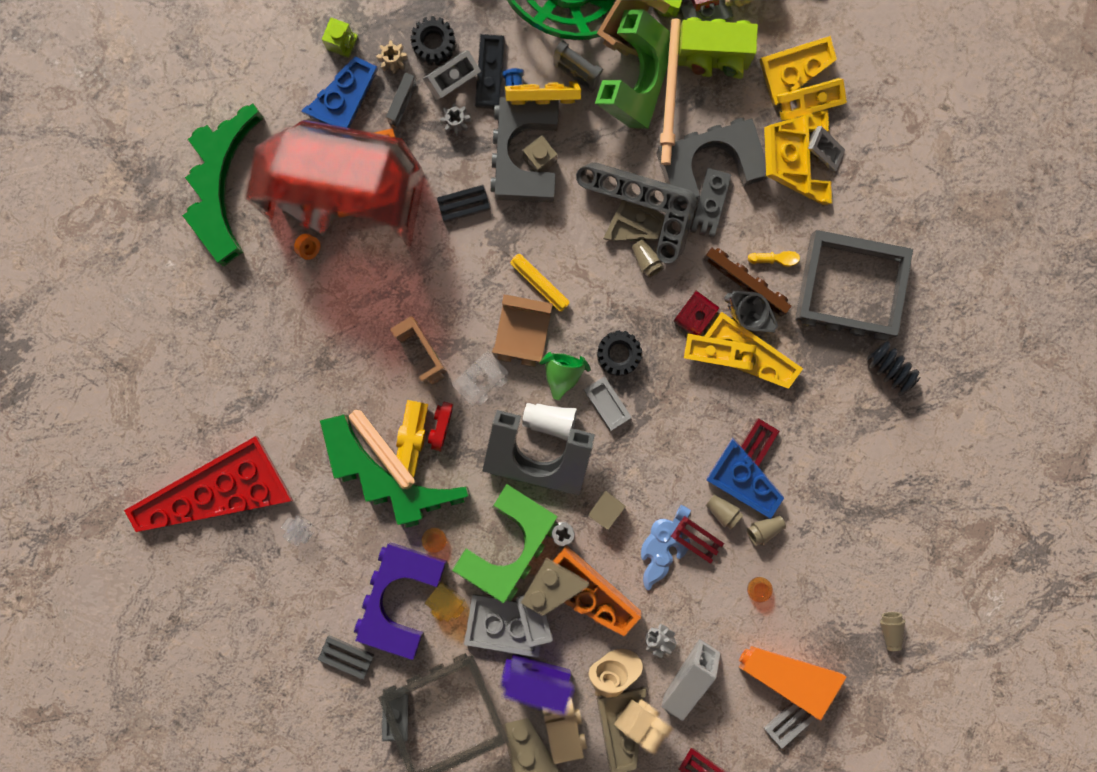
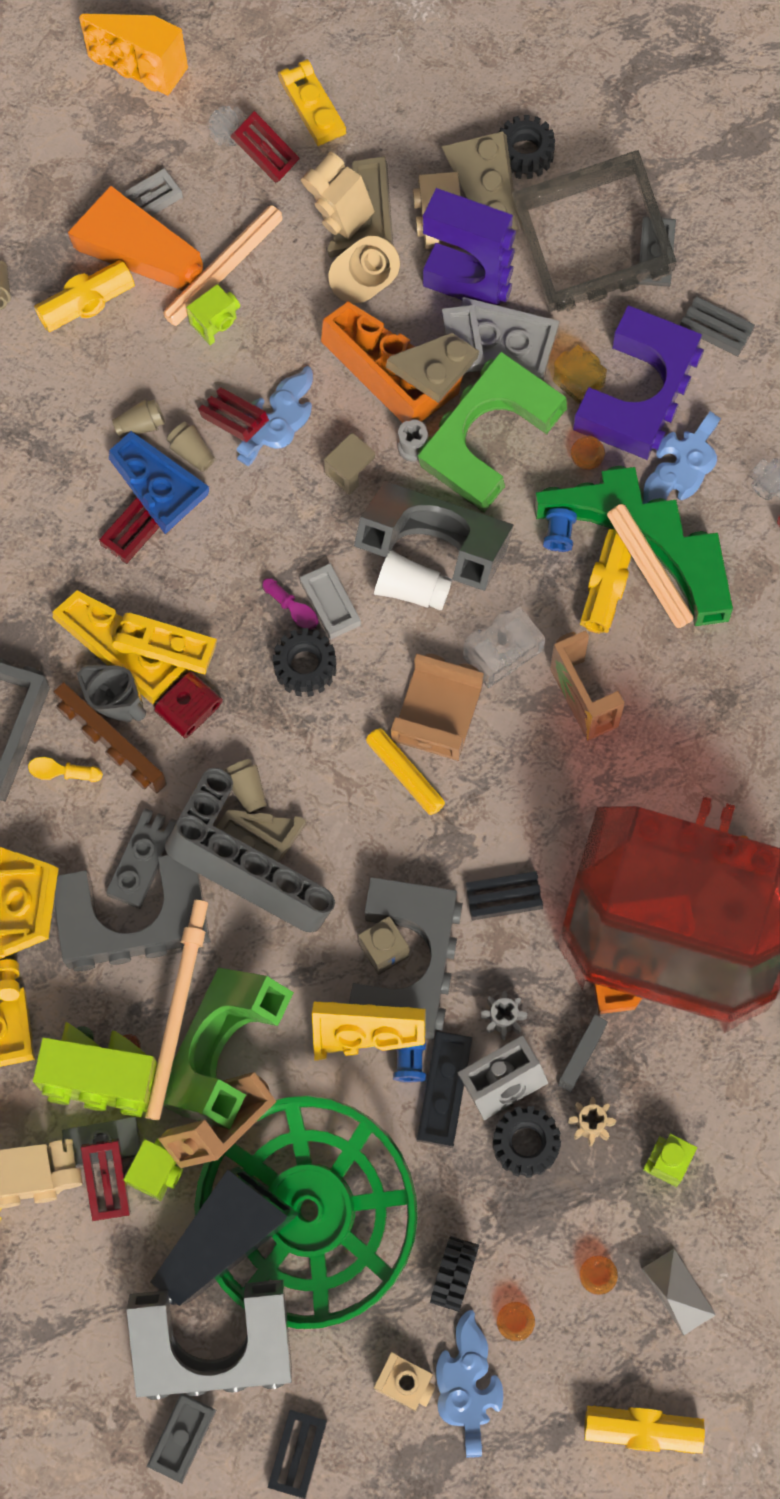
camera: 165 degrees left, 15 degrees down
(344, 95) = (671, 1071): blue wing -> none
(356, 542) = (693, 462): none -> medium blue piece
(437, 436) = (560, 603): red plate -> none
(449, 474) = (559, 529): none -> blue bush
(563, 372) = (385, 645): bright green hat -> none
(576, 66) = (300, 1060): dark grey plate -> none
(626, 391) = (301, 613): none -> magenta piece
(660, 641) = (300, 300): light grey gear -> none
(691, 680) = (265, 252): light grey slope -> none
(724, 624) = (213, 312): none -> lime brick
(726, 665) = (224, 263): none -> light nougat axle
(759, 589) = (160, 351): clear orange plate -> none
(824, 628) = (84, 295): none -> yellow piece

